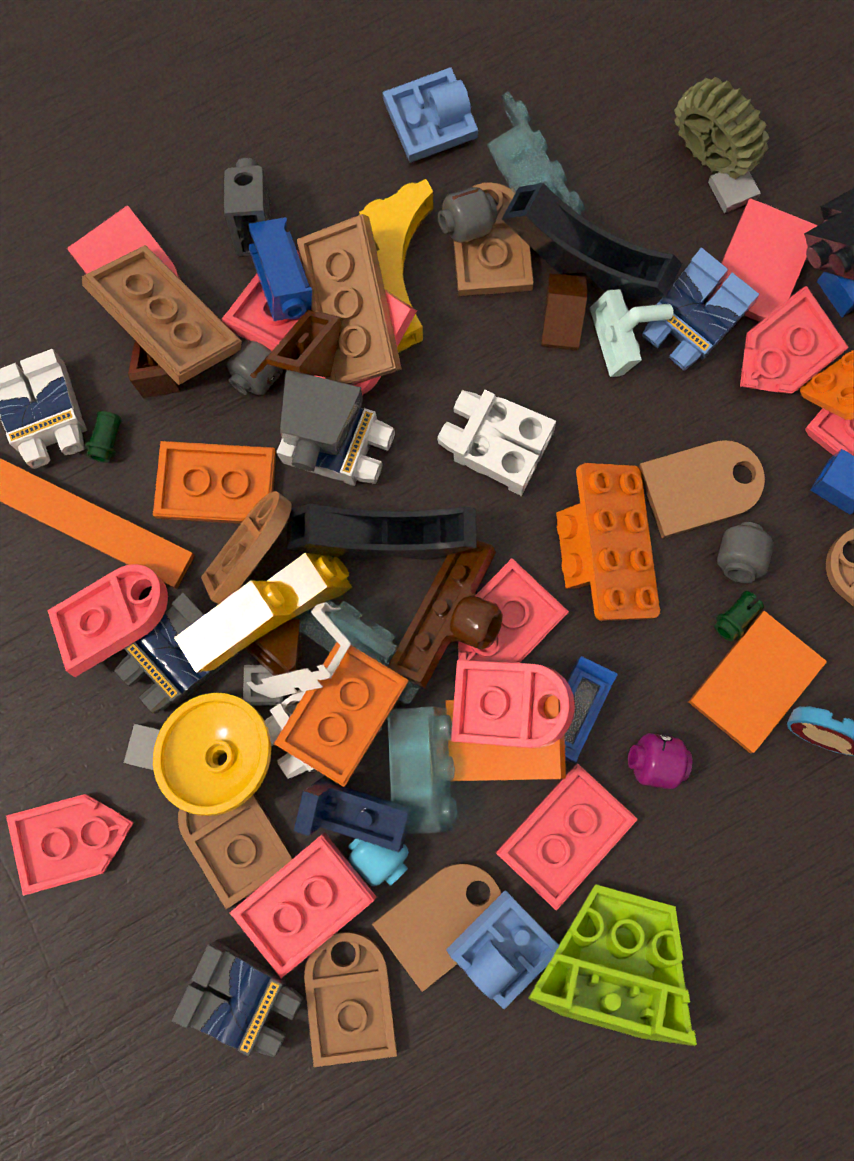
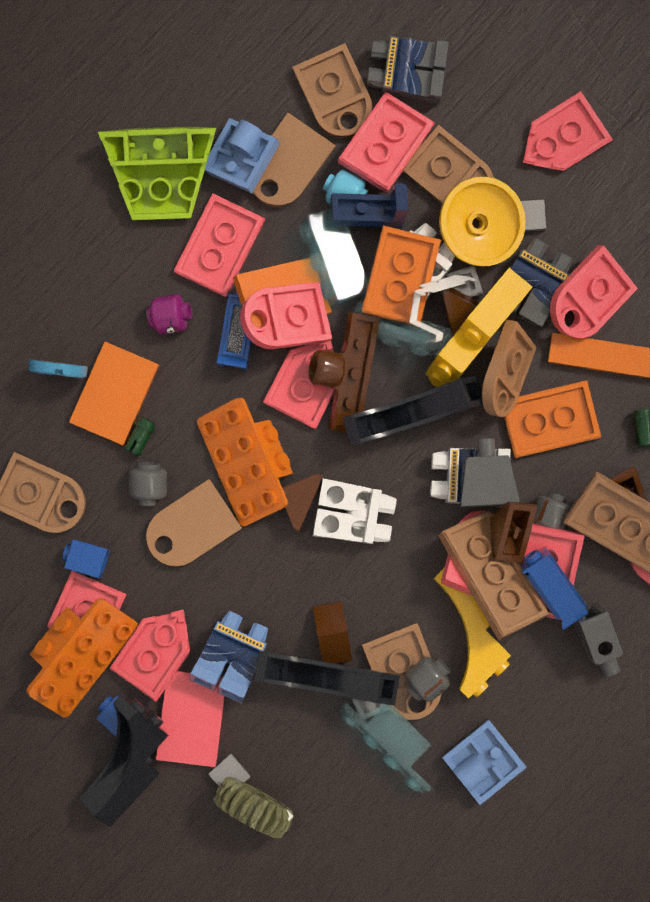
camera: 165 degrees right, 5 degrees up
(557, 476) = (300, 498): none -> reddish brown slope
(615, 329) = (286, 623): light aqua plate -> none

